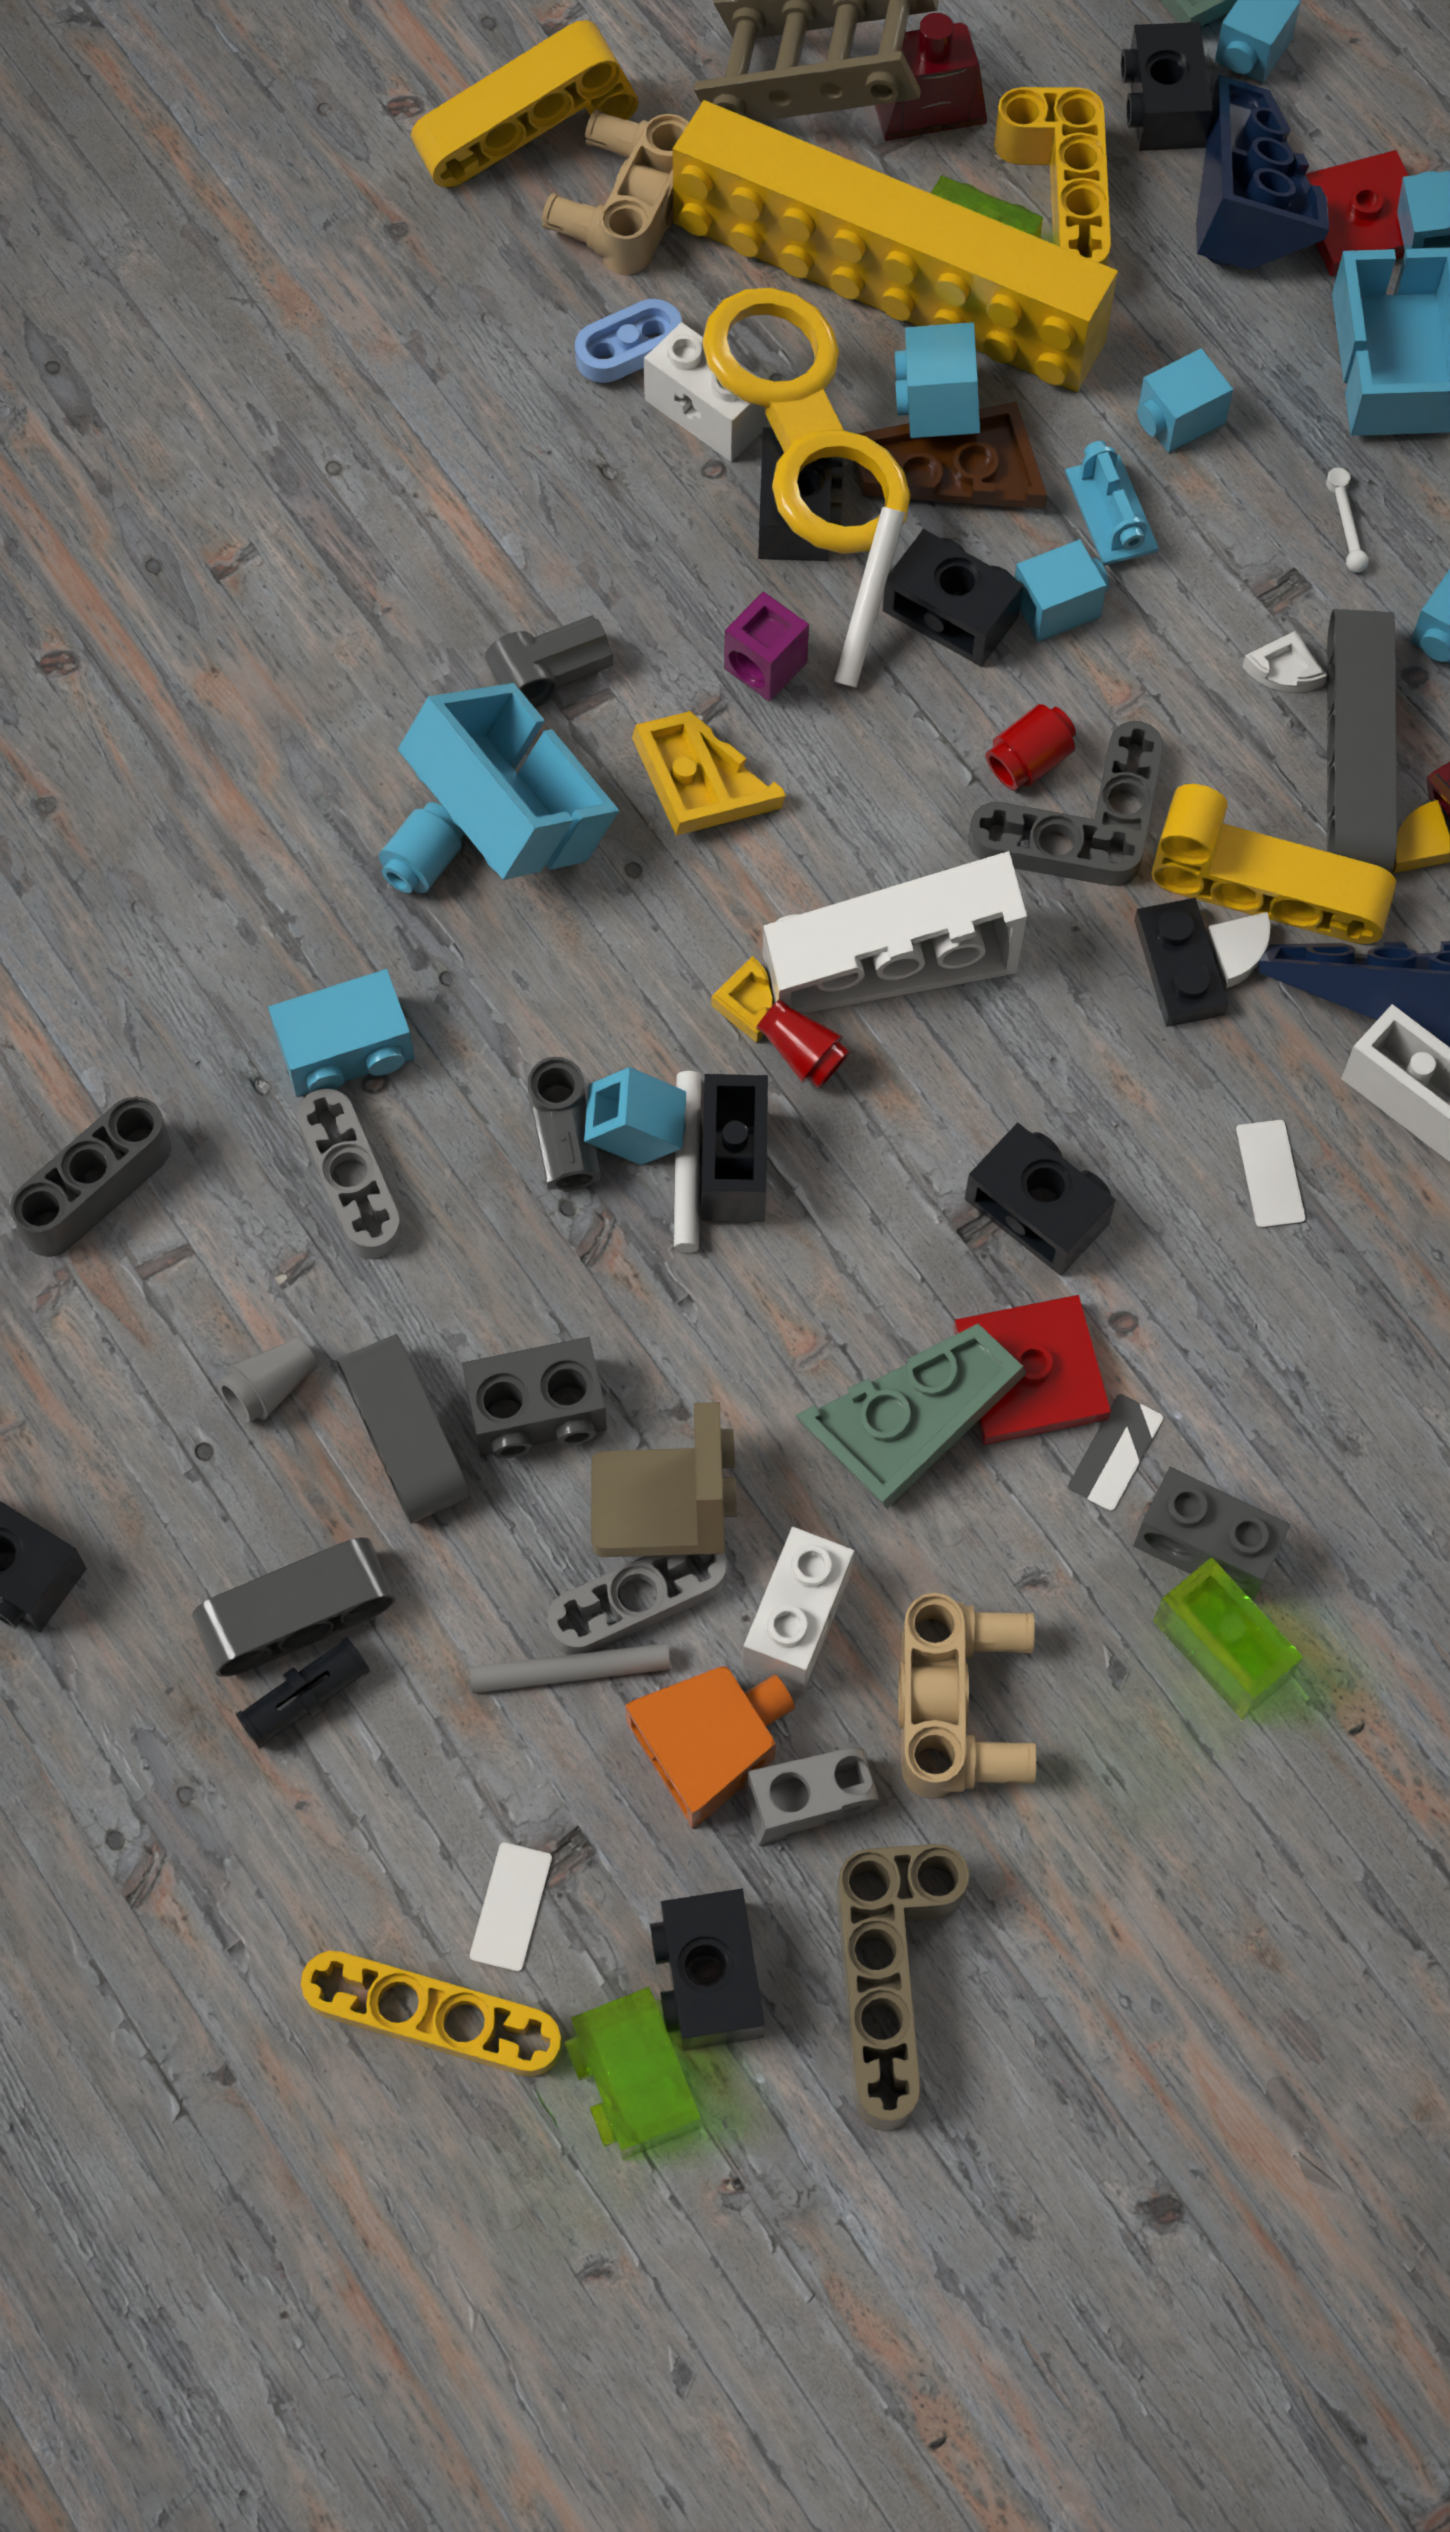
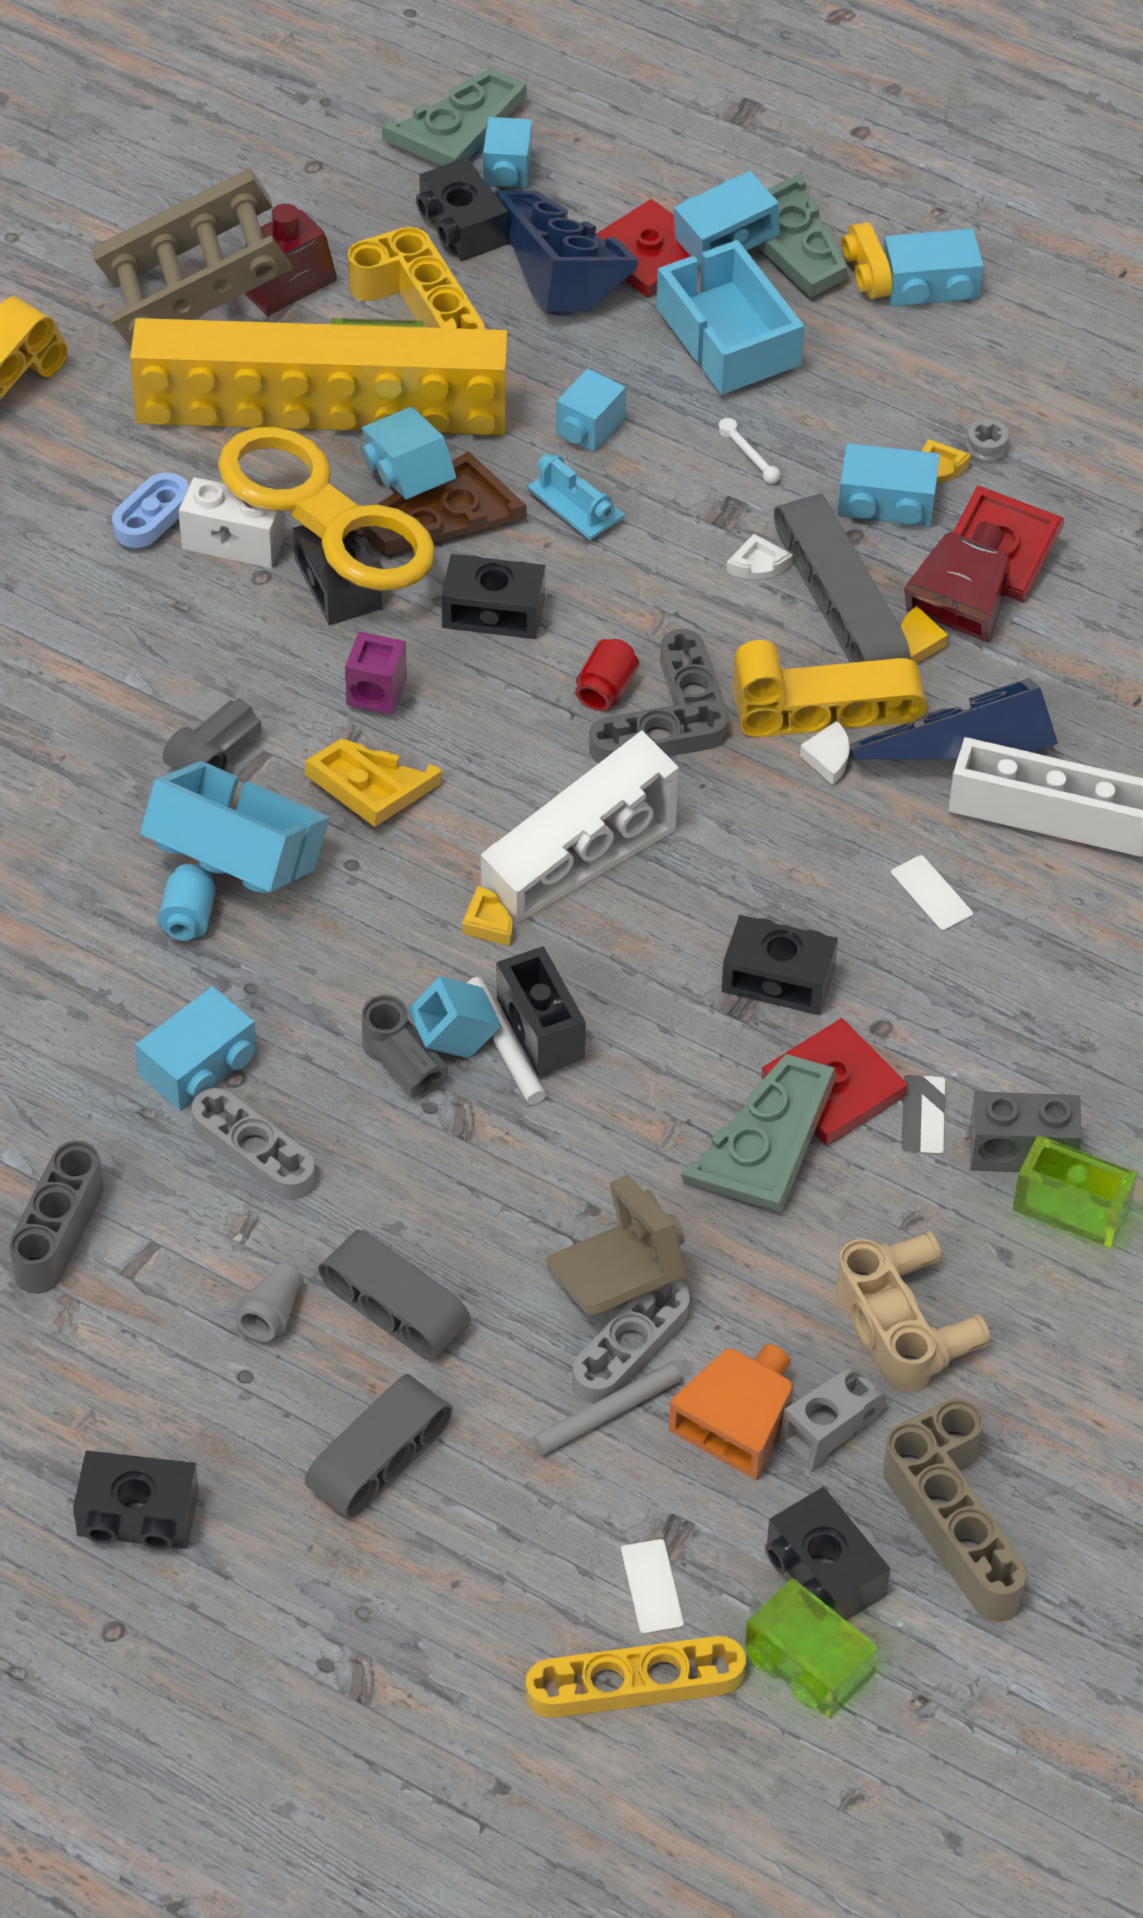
camera: 25 degrees left, 15 degrees down
(341, 1664) = (402, 1528): black pin -> none
(531, 1380) = (476, 1227): dark grey brick -> none
(642, 199) = (110, 405): tan piece -> none
(797, 1608) = (757, 1292): white brick -> none
(804, 1044) = (550, 926): red cone -> none
(869, 596) = (435, 613): white bar -> none
(1061, 589) = (572, 563): medium azure brick -> none
(1181, 962) = (792, 777): black plate -> none

